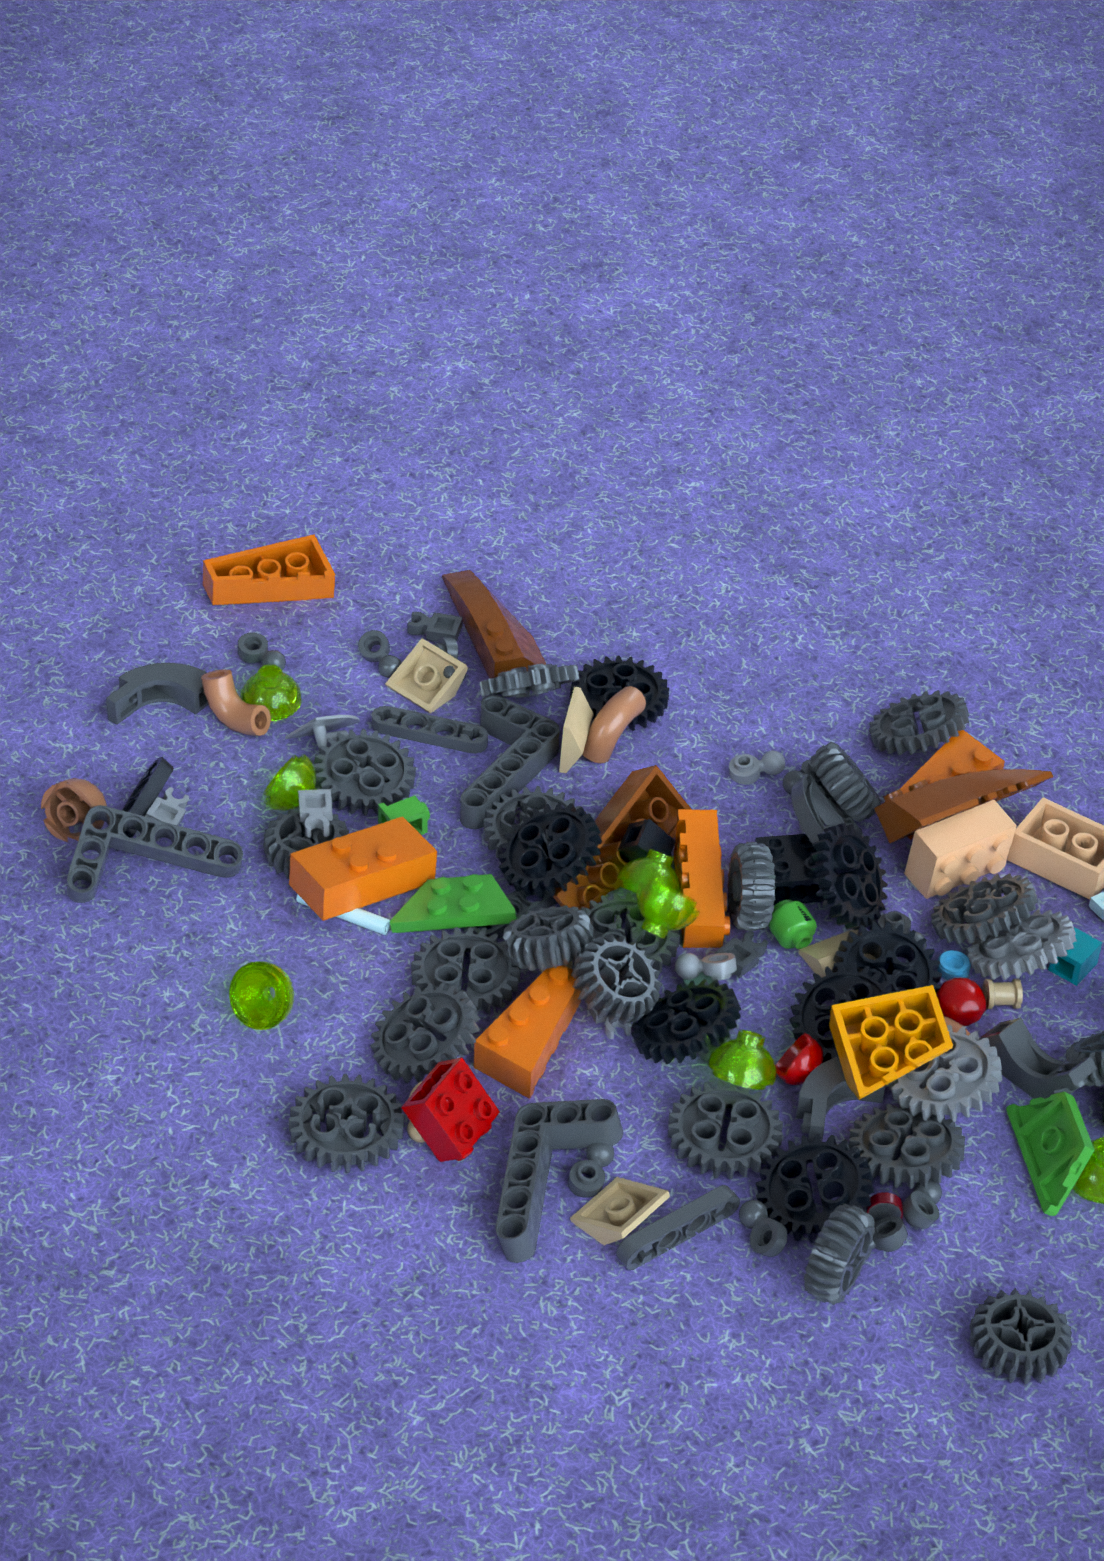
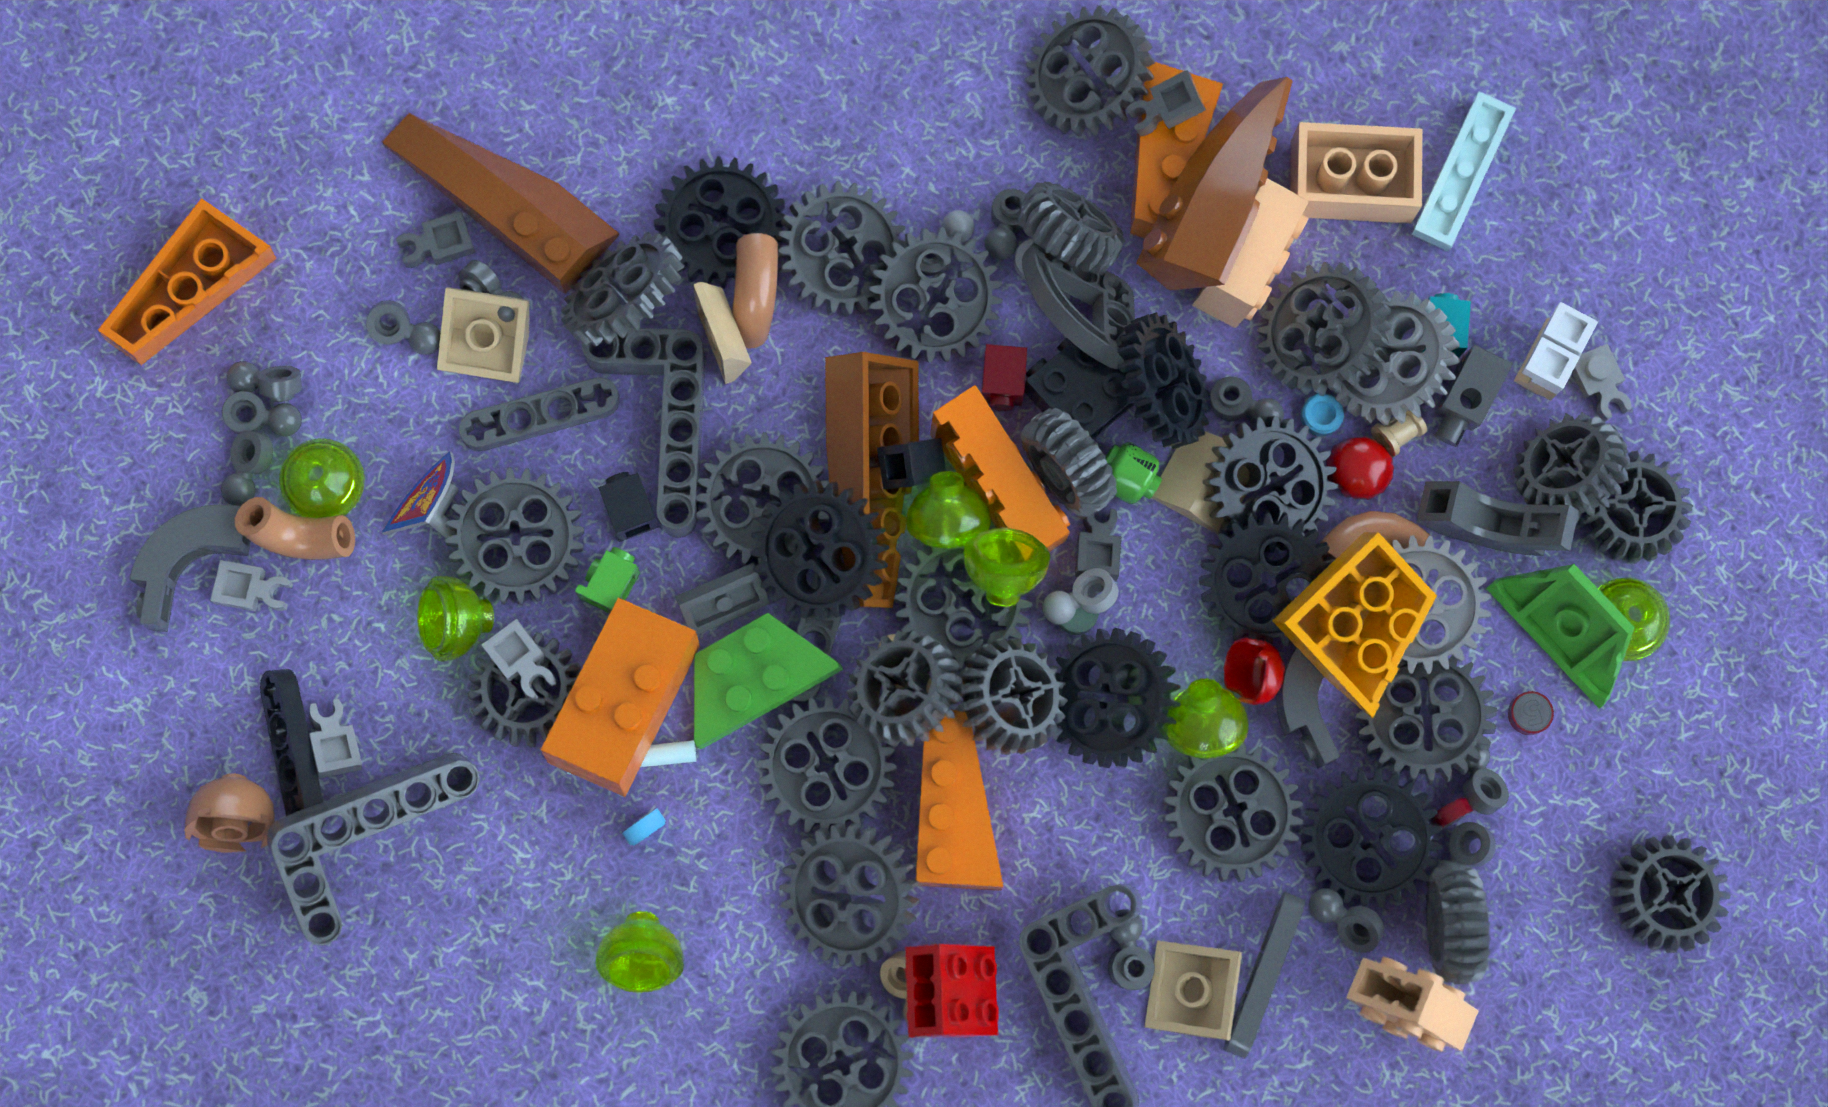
camera: 35 degrees left, 35 degrees up
(180, 720) = (244, 586): none -> light grey plate
(241, 665) = (250, 455): none -> dark grey plate
(283, 642) = (274, 382): none -> dark grey plate
(321, 943) = (644, 827): none -> medium azure tile
(445, 790) = (627, 505): none -> black brick
(467, 860) = (722, 599): none -> dark grey plate
(713, 735) = (812, 268): none -> dark grey gear
(730, 779) = (965, 317): none -> dark grey gear
(741, 831) = (1004, 376): none -> dark red brick
(771, 1275) = (1412, 1004): none -> light nougat brick
(957, 745) = (1172, 102): none -> dark grey plate
(988, 1190) = (1530, 713): none -> tile
(1069, 989) = (1478, 379): none -> dark grey torso

